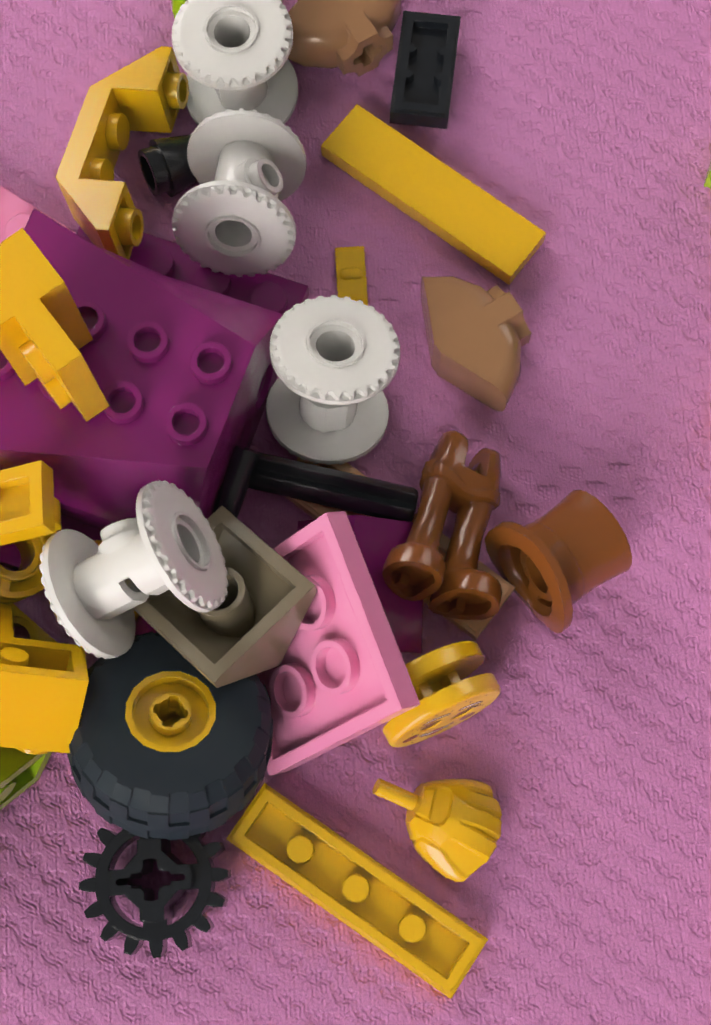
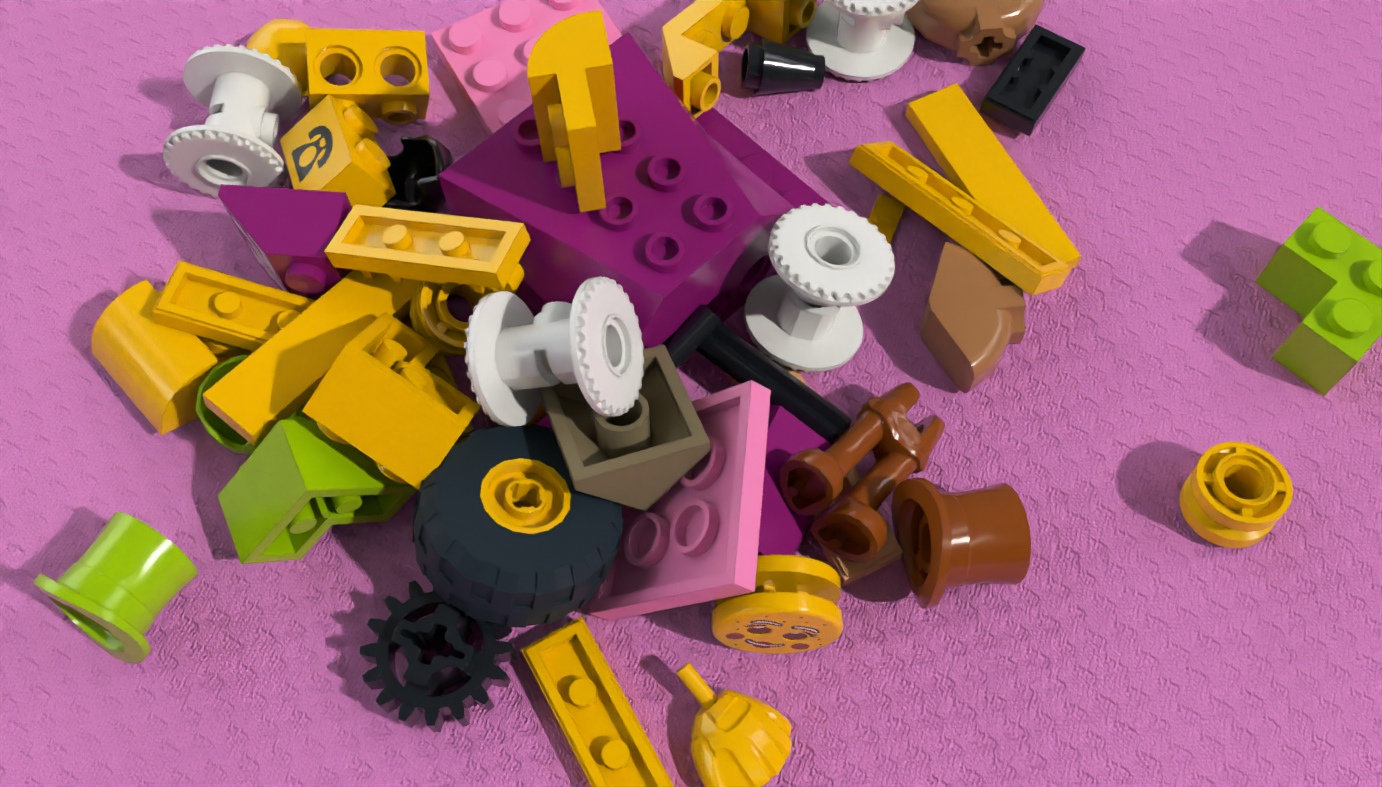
camera: 25 degrees right, 10 degrees down
(237, 212) = (806, 113): white hose -> none
(421, 244) = (961, 217): none -> yellow tile

